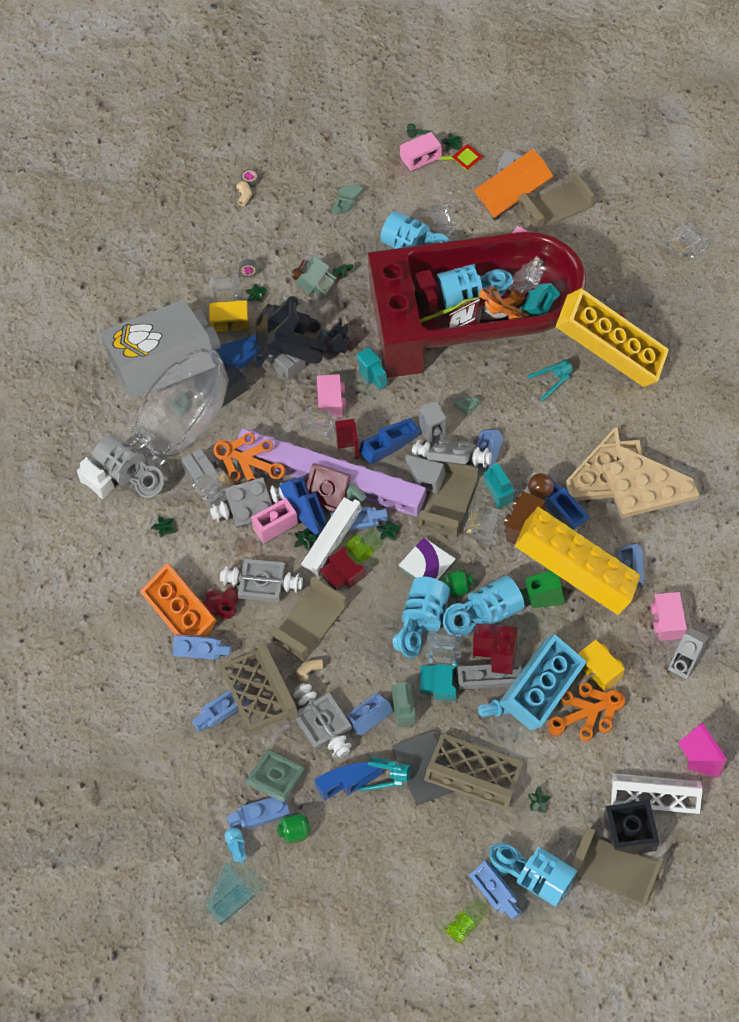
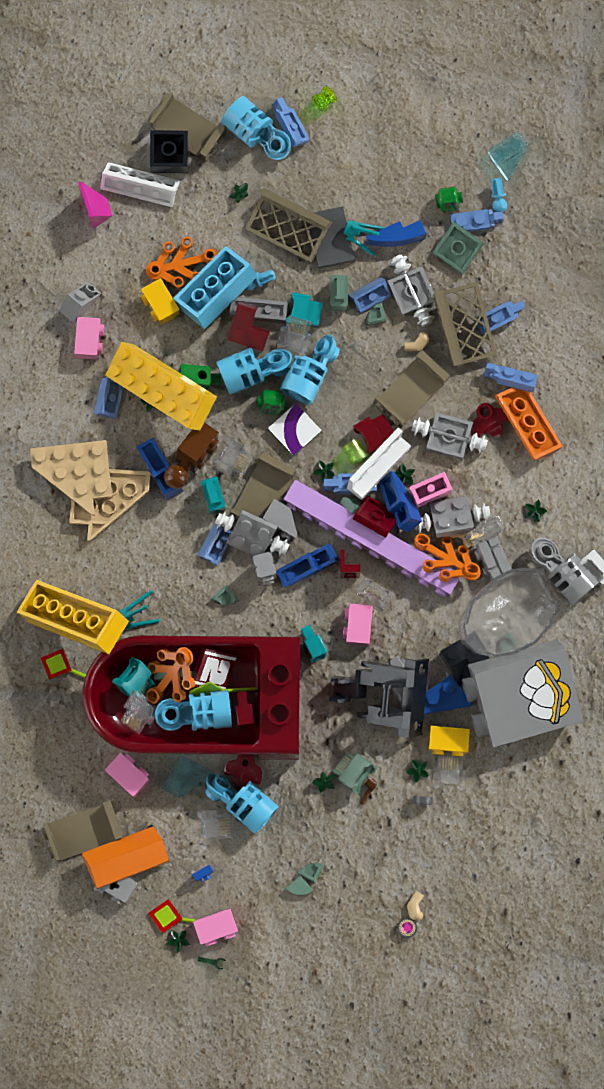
camera: 175 degrees left, 20 degrees up
(358, 692) = (376, 315): none -> sand green tile
(440, 186) = (203, 874): none -> blue plate

